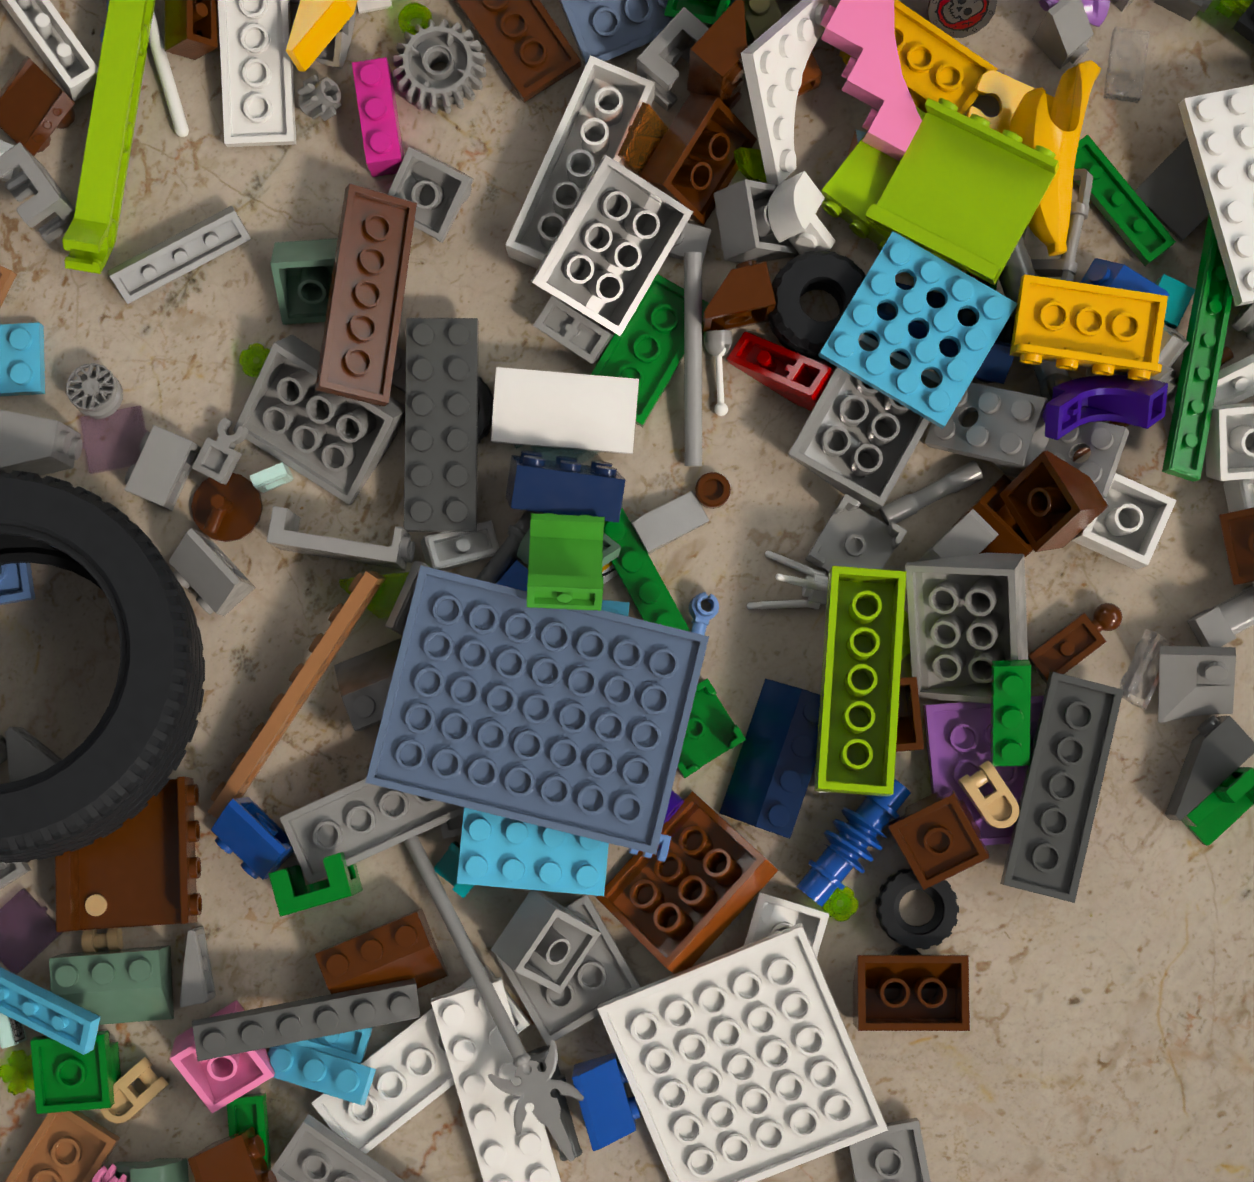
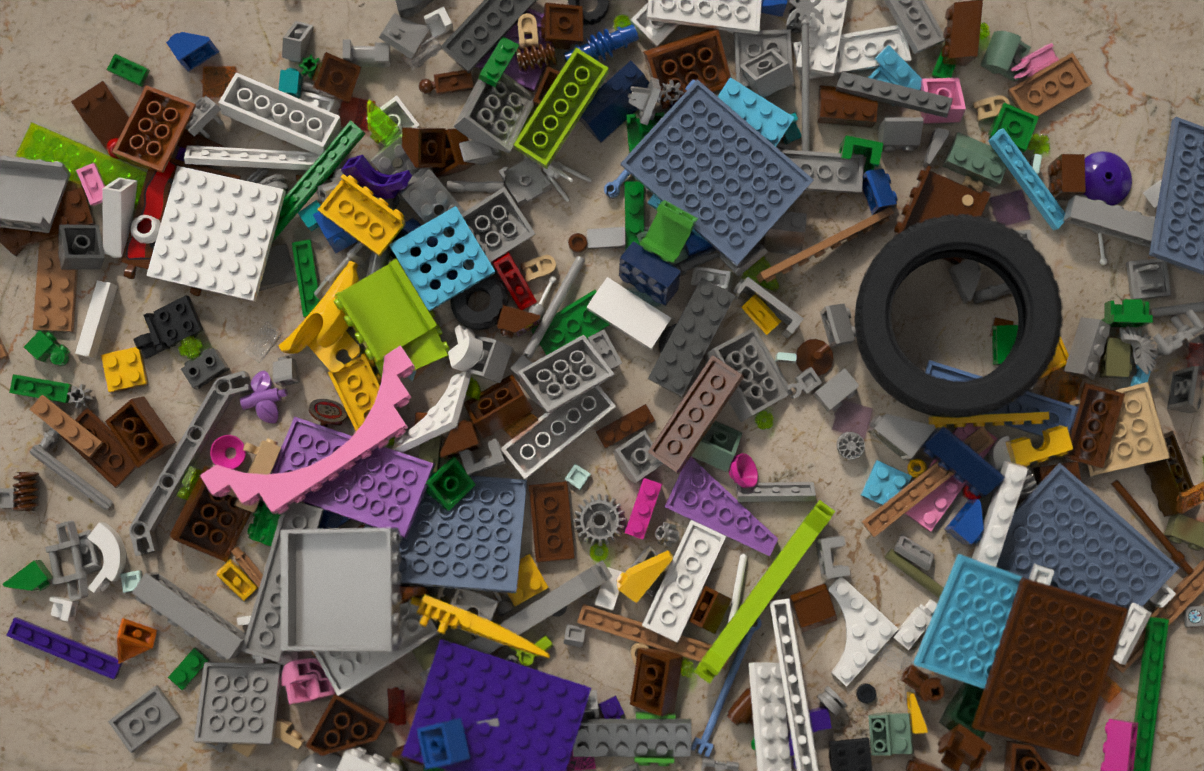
camera: 155 degrees left, 0 degrees up
(241, 262) = (743, 471): none -> dark pink piece
(264, 956) = (900, 134): none -> light grey slope
(273, 181) = (710, 504): none -> medium lavender wing
(345, 524) = (761, 314): none -> yellow plate
(477, 236) = (625, 426): none -> reddish brown plate
(511, 119) = (577, 476): none -> light aqua tile
(700, 817) = (674, 96): none -> light grey gear
(726, 781) = (646, 99): none -> light grey plate
(747, 424) = (545, 265): none -> tan plate
(951, 756) = (536, 57): none -> reddish brown piece
(1148, 495) = (380, 125): none -> clear neon green slope
(1148, 738) = (438, 22): none -> white panel
(1196, 513) = (356, 112): none -> clear red piece

